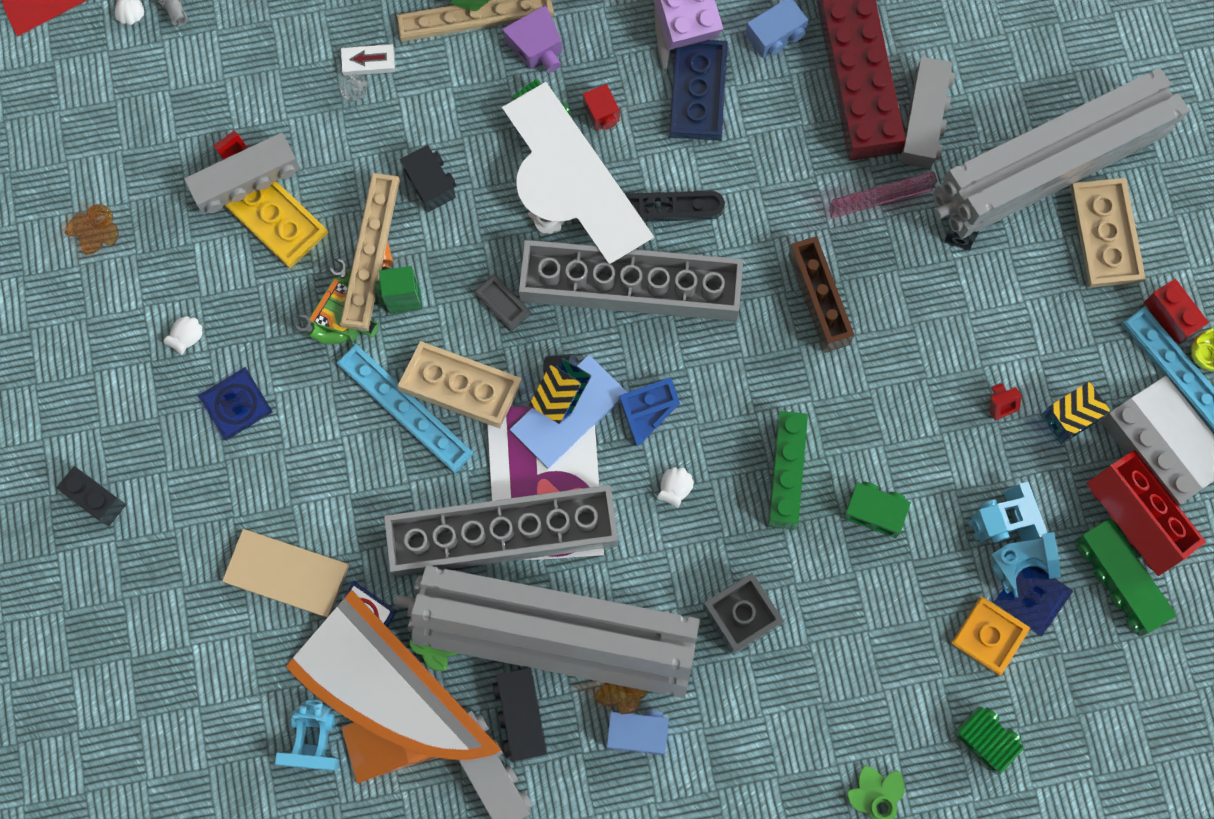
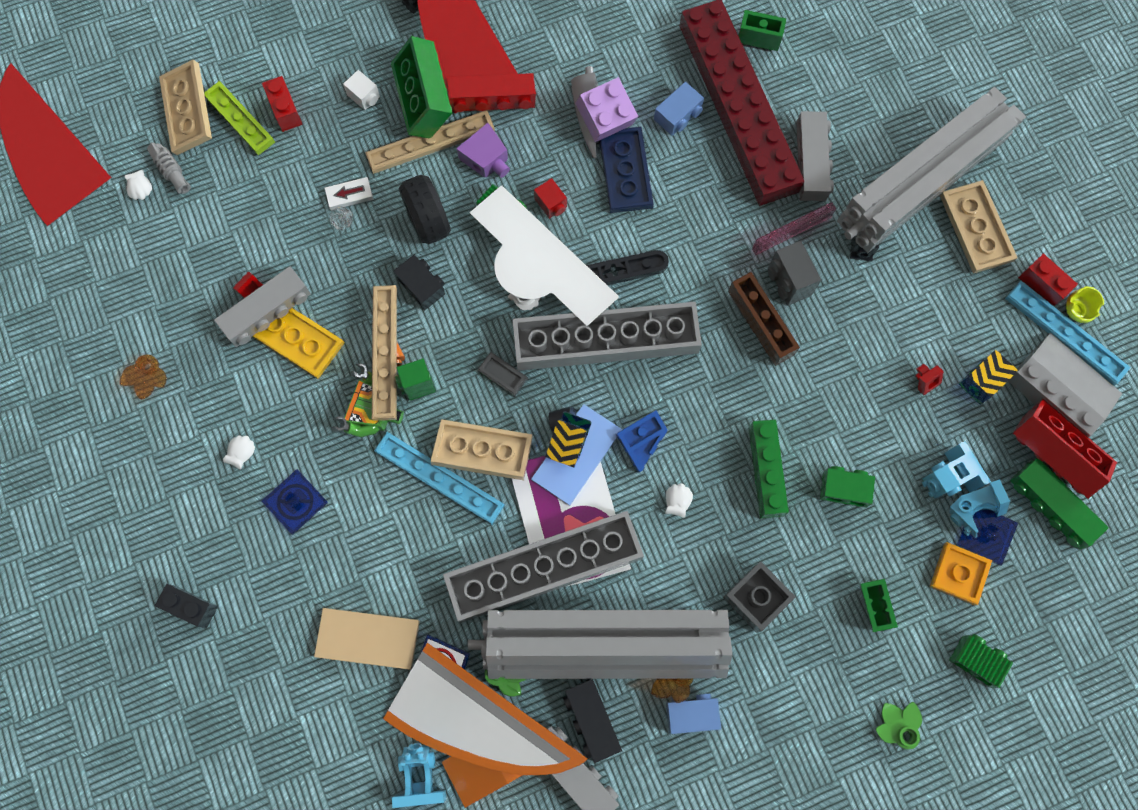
camera: 15 degrees left, 0 degrees up
(450, 94) = (425, 209): none -> black tyre
(868, 247) = (793, 273): none -> dark grey brick
(880, 652) = (878, 605): none -> green brick

